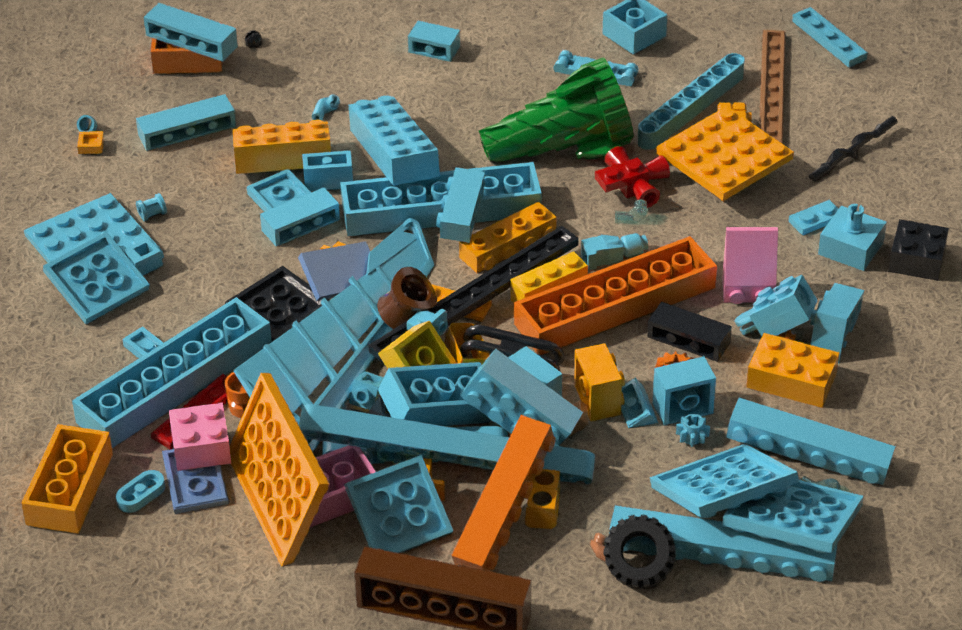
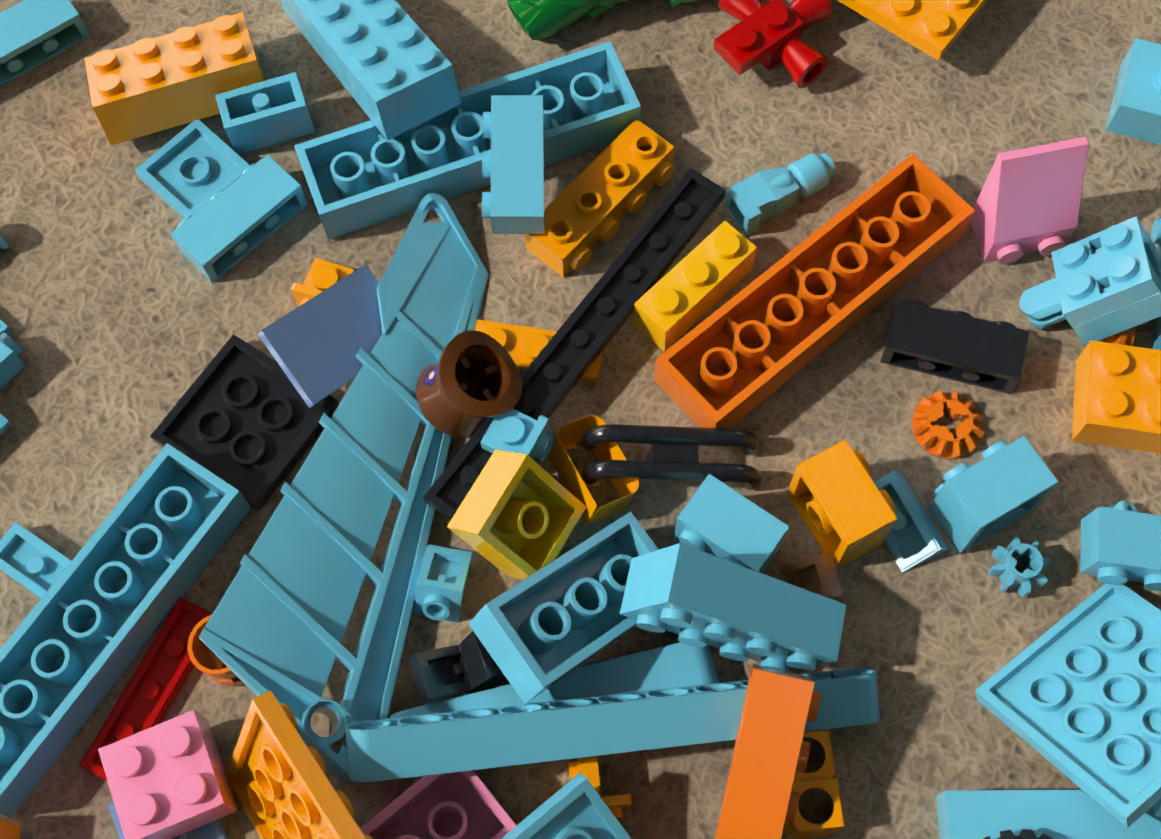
camera: 10 degrees left, 25 degrees up
(634, 215) = (792, 109): clear light blue arm -> none
(813, 217) = (1082, 56): medium azure plate -> none

